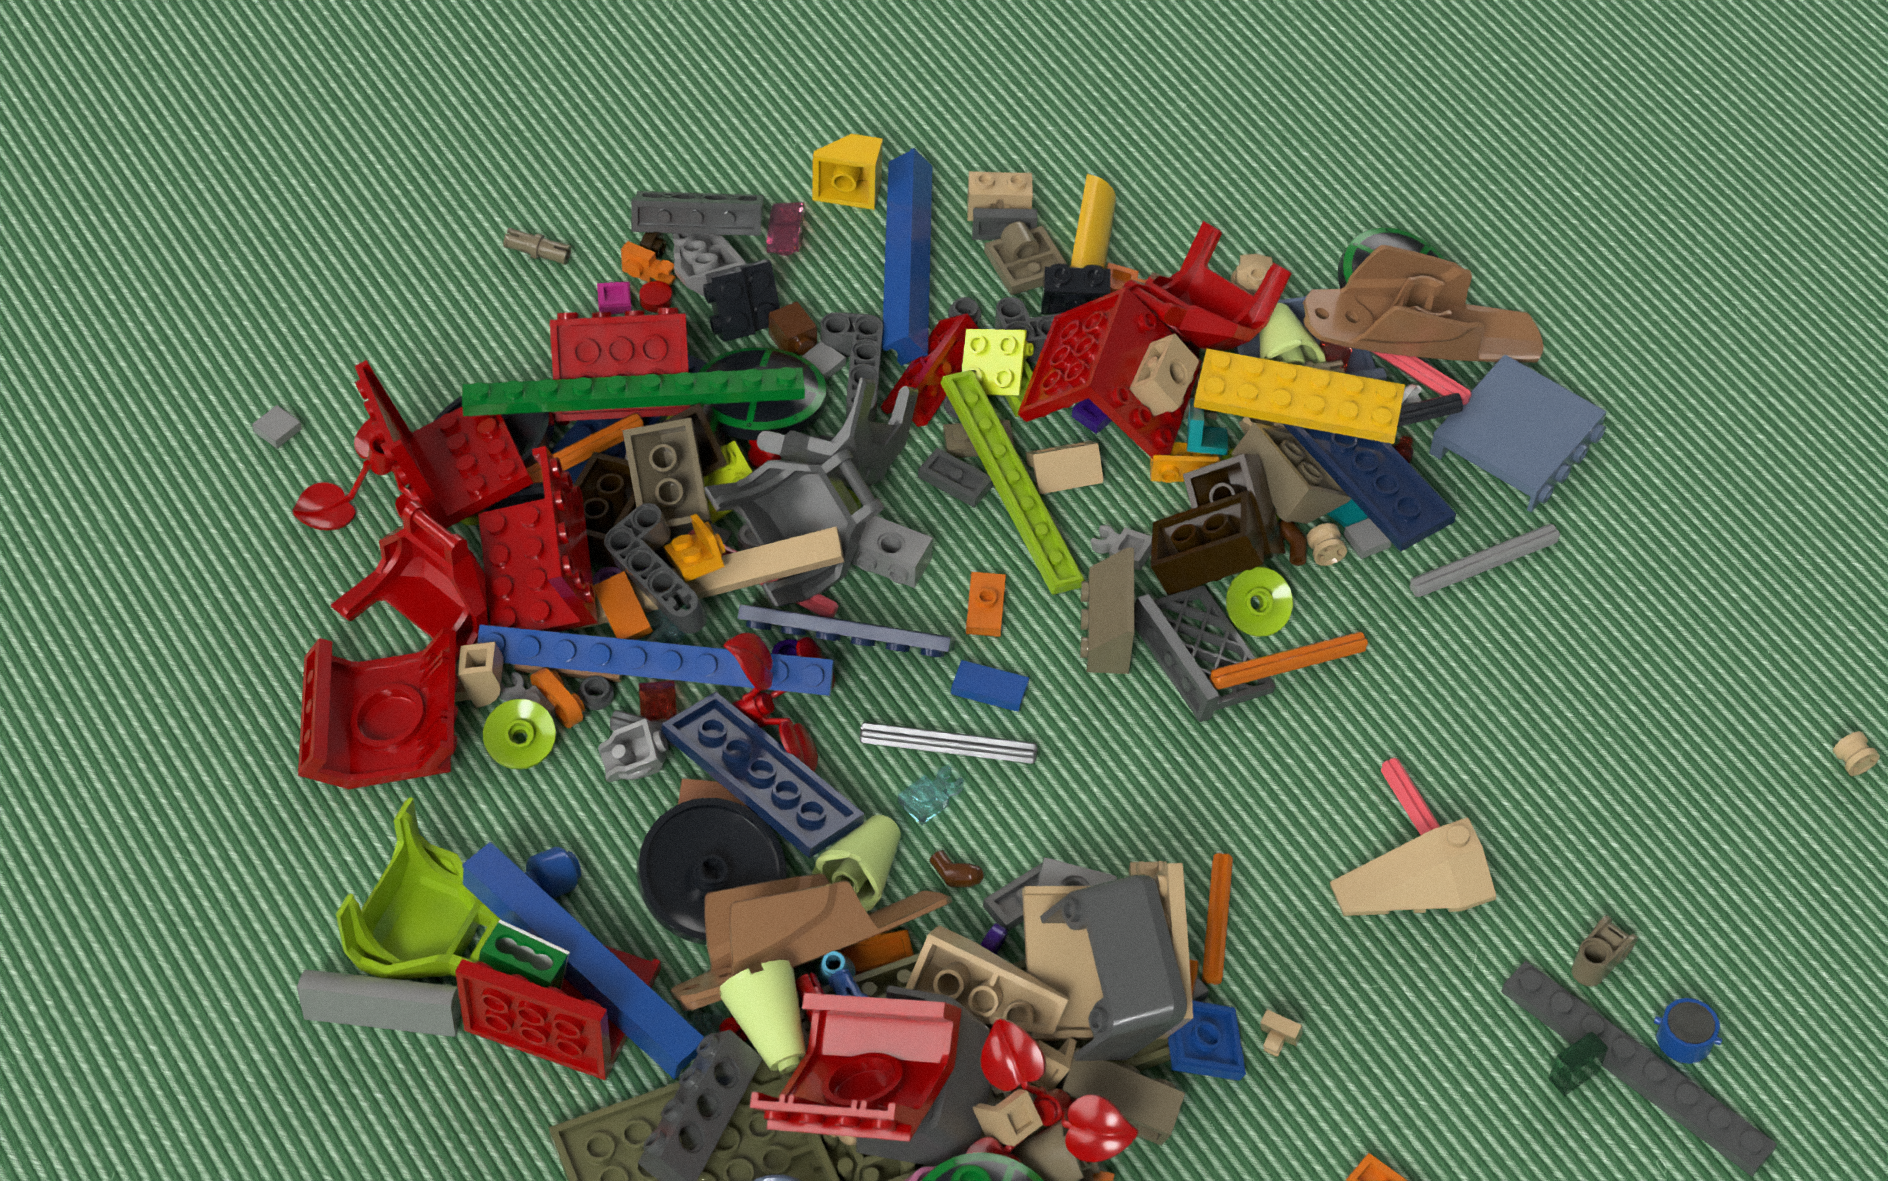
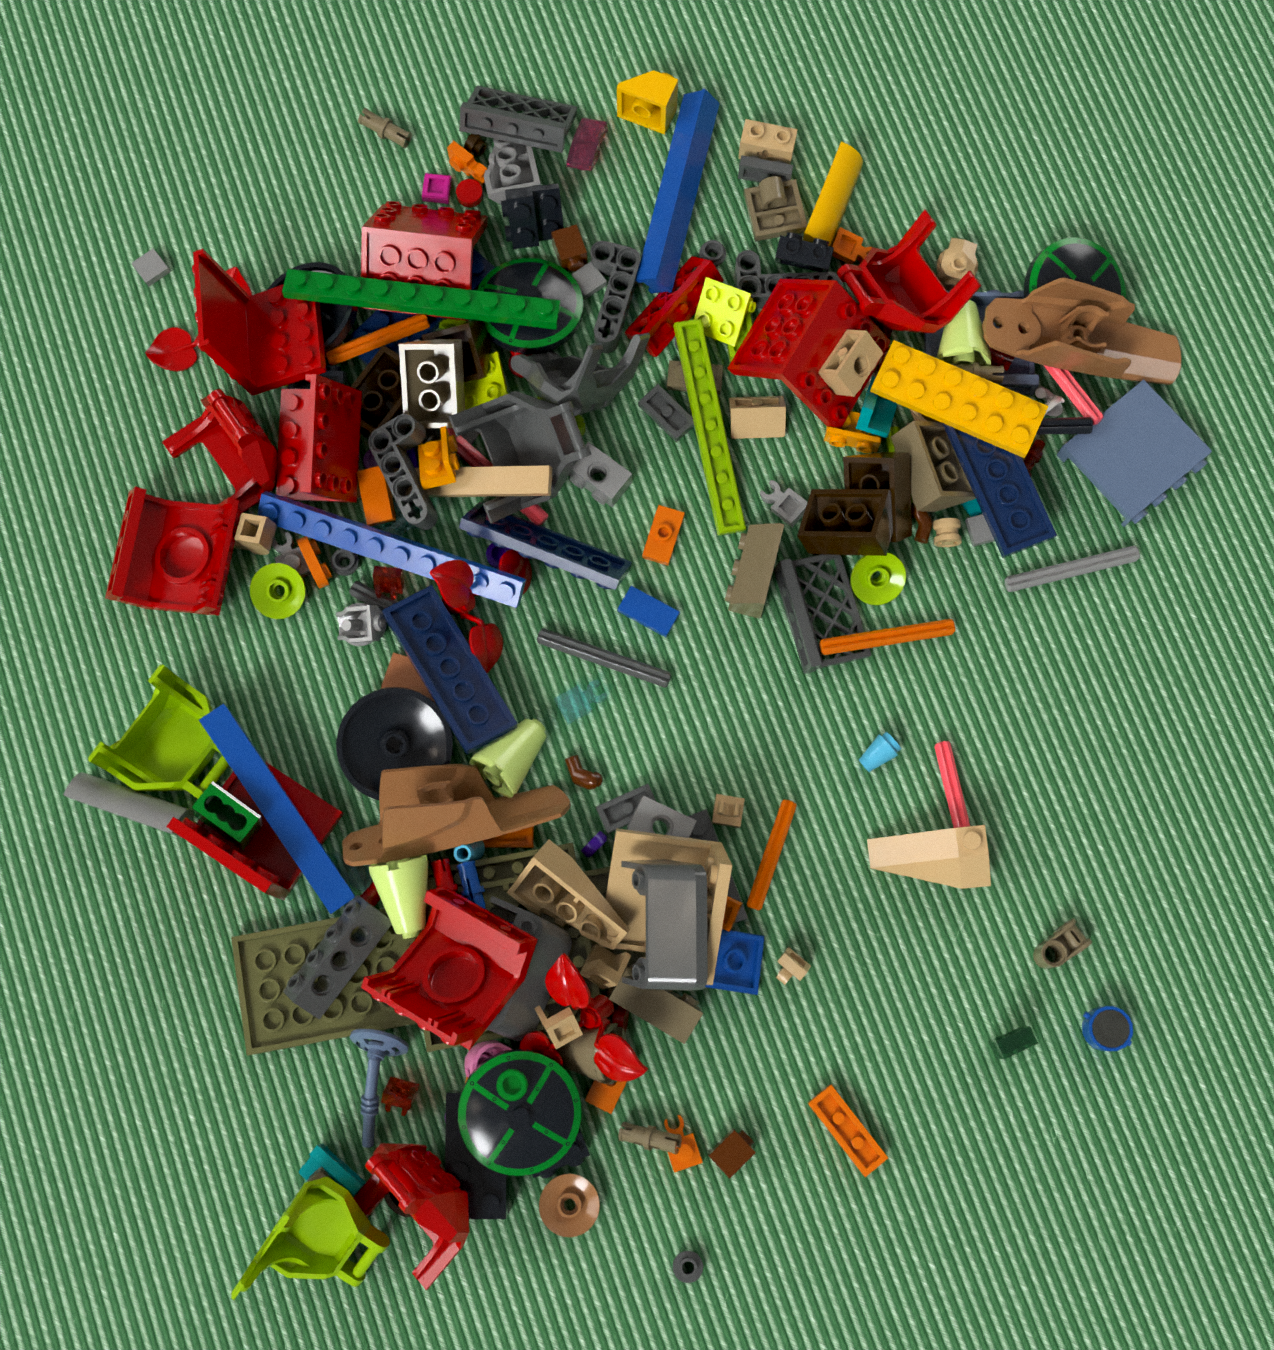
camera: 15 degrees right, 25 degrees up
(554, 871) = (277, 719): blue head -> none
(1317, 783) = (879, 752): none -> medium azure cone
(1642, 1069) = (1061, 1050): dark grey plate -> none

